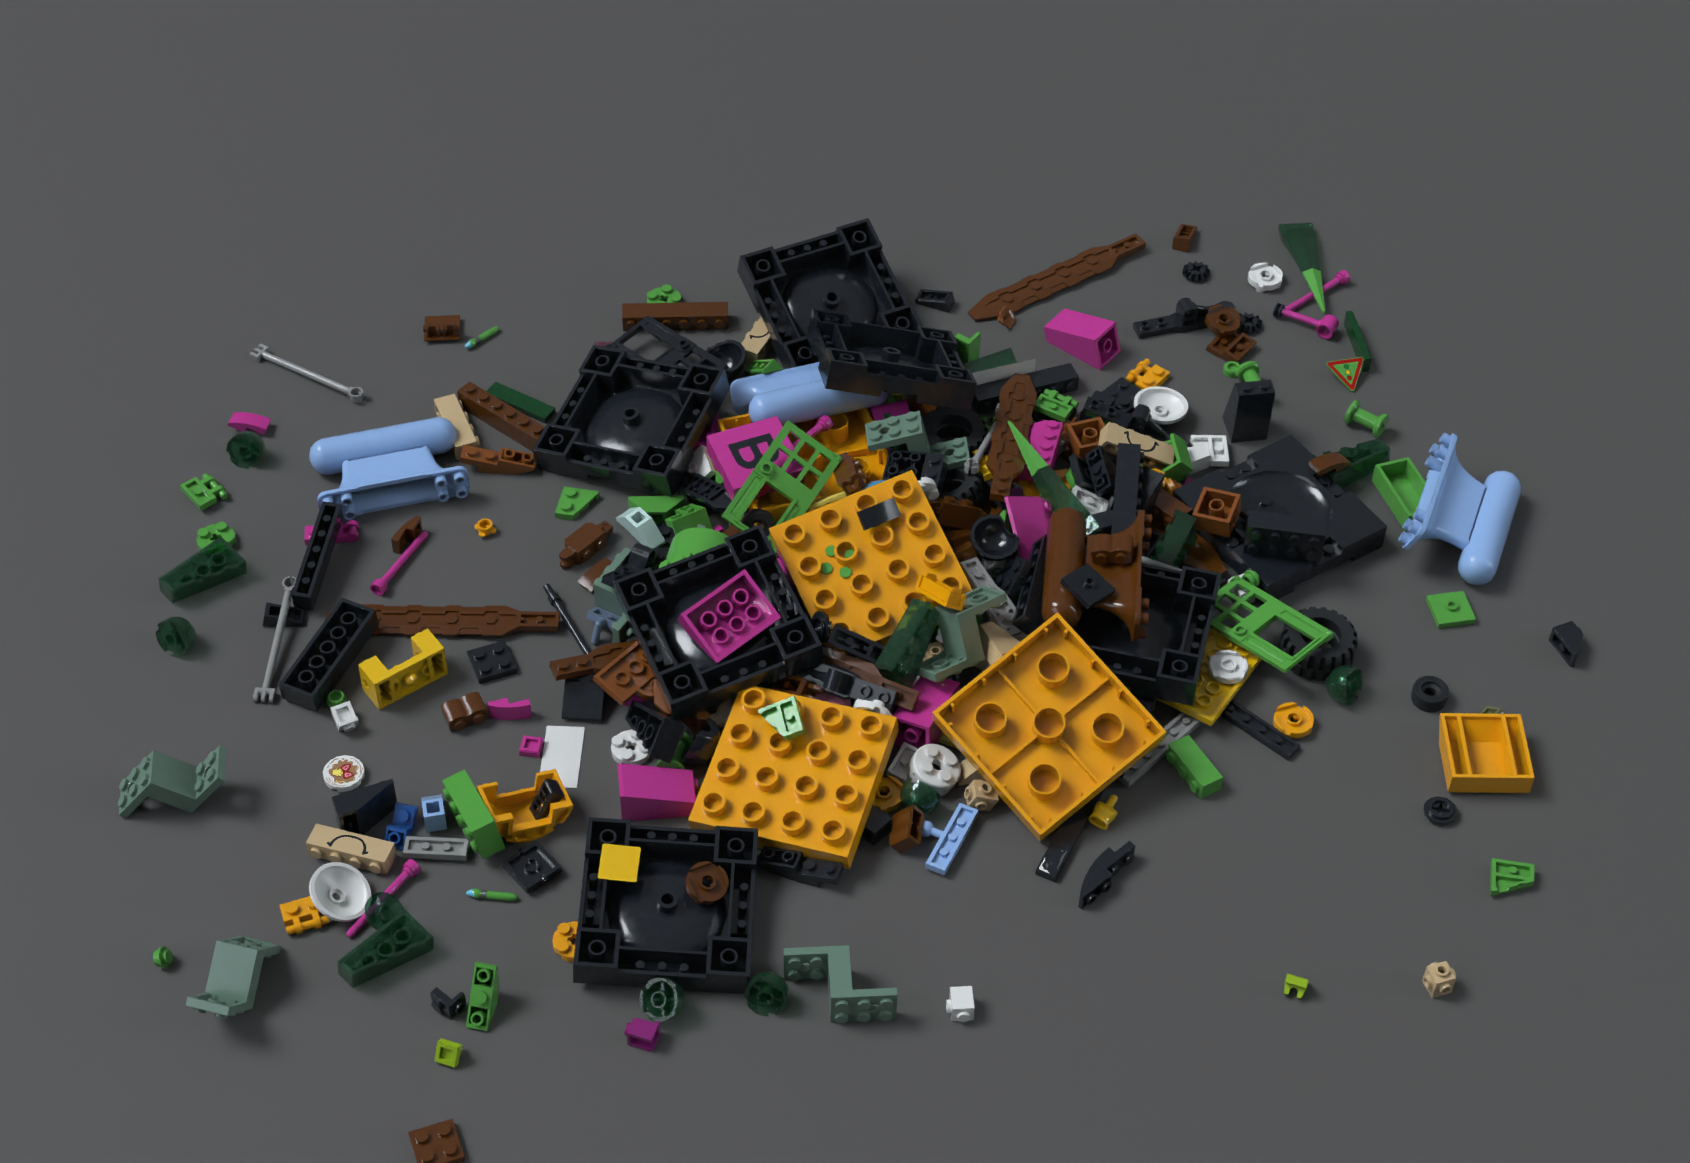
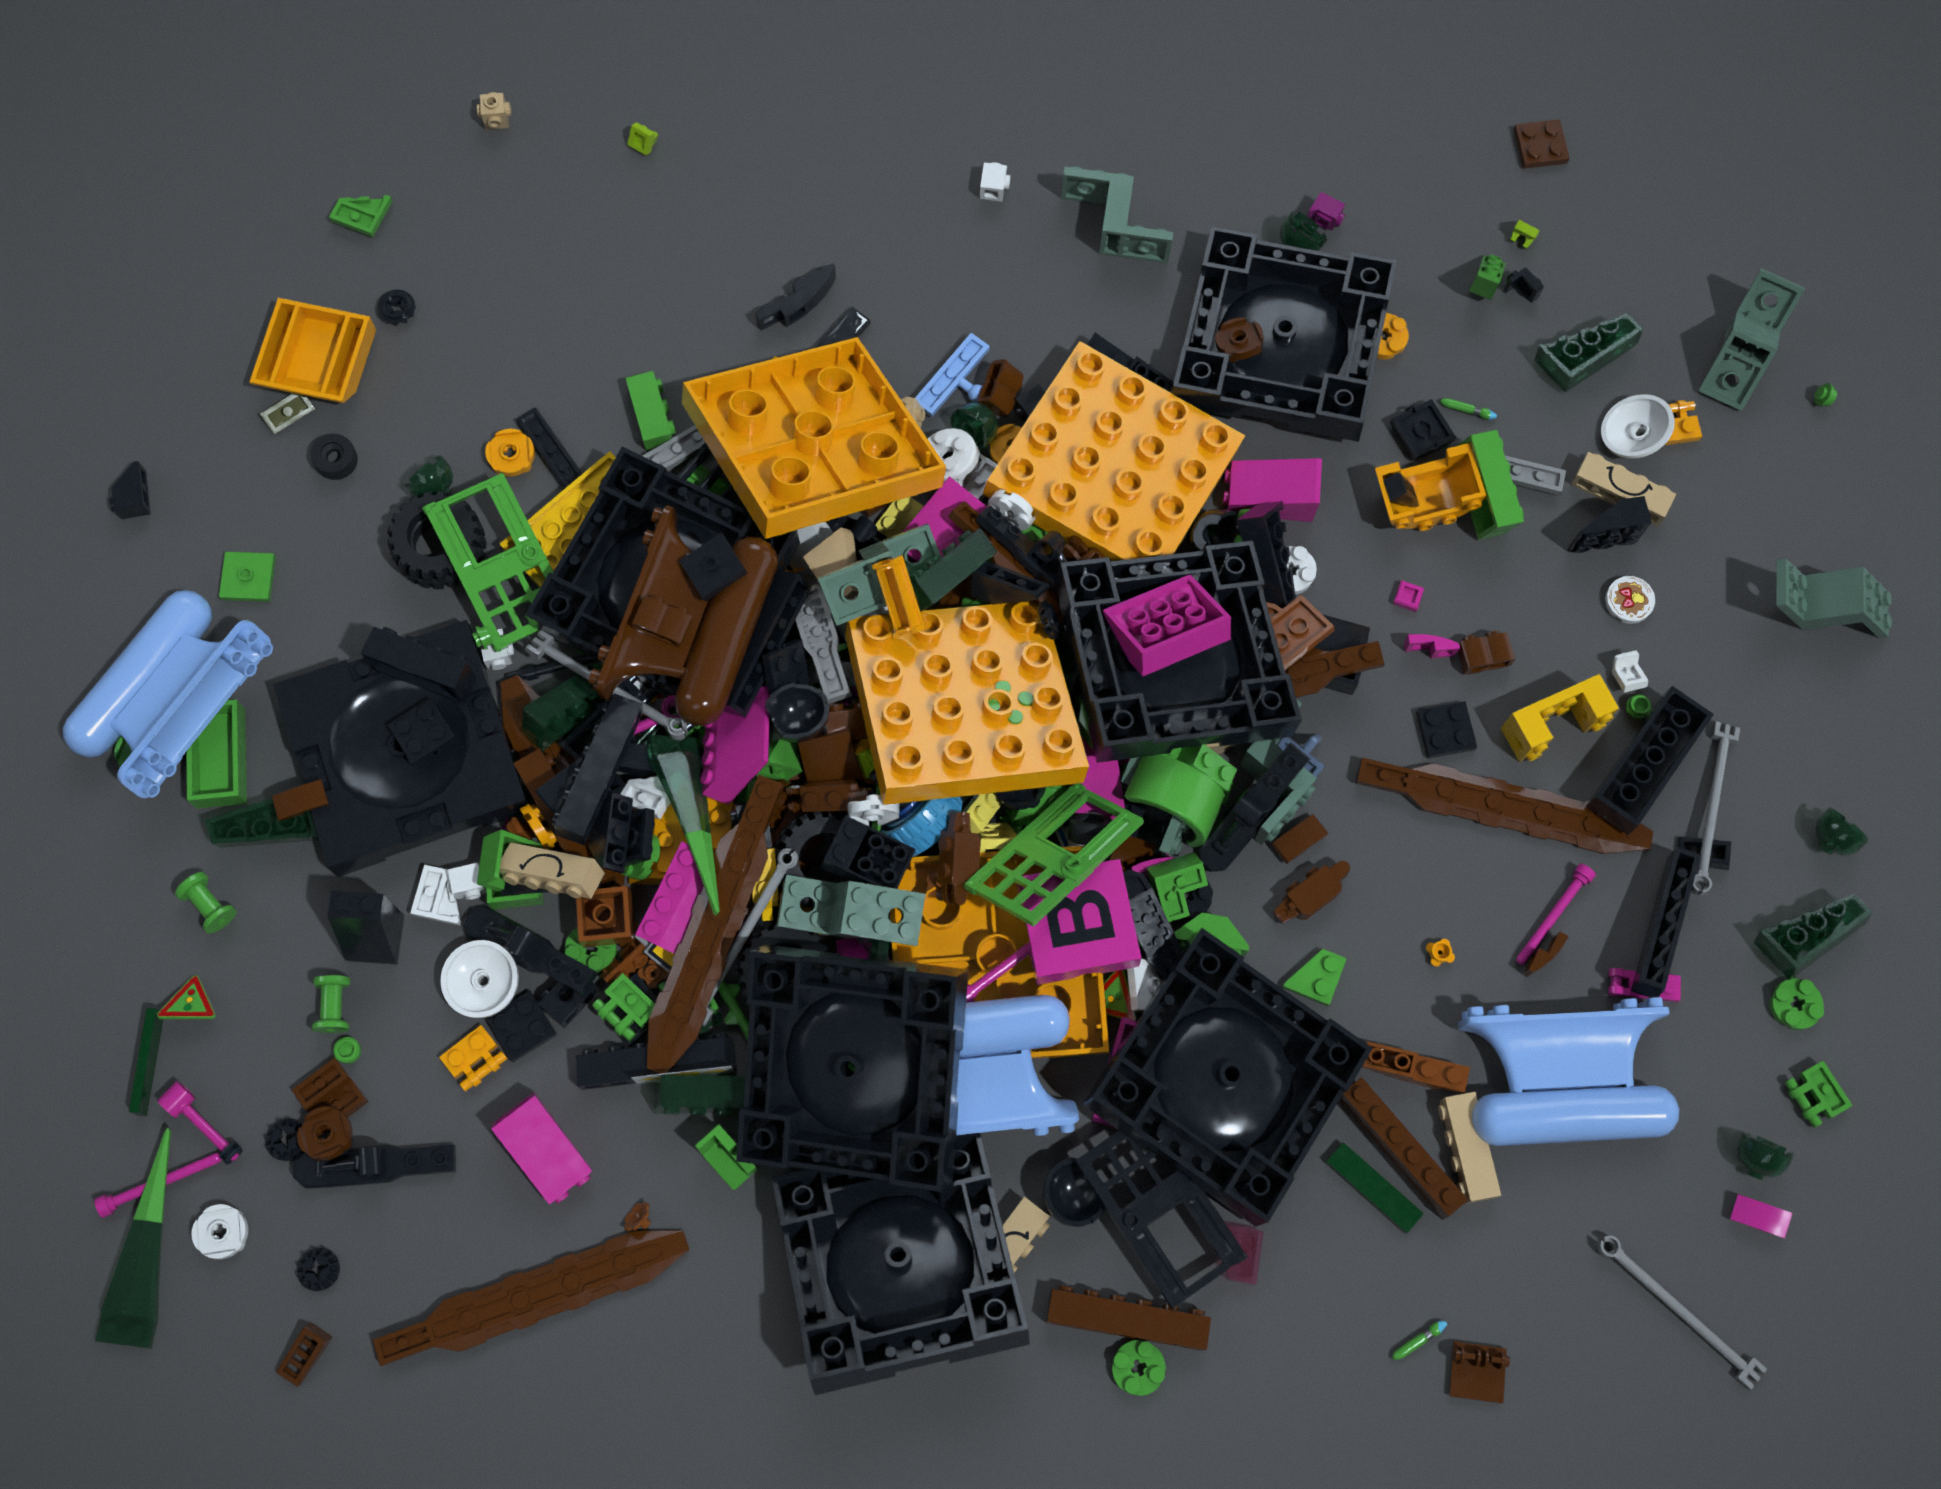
camera: 170 degrees left, 25 degrees up
(381, 903) = (1588, 399): clear green dish -> none
(402, 824) = (1566, 510): blue slope -> none
(410, 869) = (1557, 453): dark pink piece -> none
(433, 813) = (1532, 529): light blue slope -> none
(555, 601) = (1360, 811): black bar -> none
(563, 752) = (1373, 579): white sticker -> none
(619, 862) = (1335, 364): yellow sticker -> none
(641, 527) = (1239, 904): light aqua slope -> none
(762, 367) = (1023, 1158): bright green slope -> none
(767, 993) = (1190, 227): clear green cylinder -> none
(784, 717) = (1120, 495): wing -> none
(878, 513) = (955, 723): black slope -> none
(941, 299) = (711, 1274): black slope -> none
(1217, 511) = (488, 727): dark orange brick -> none
(1228, 667) = (560, 518): white tile -> none

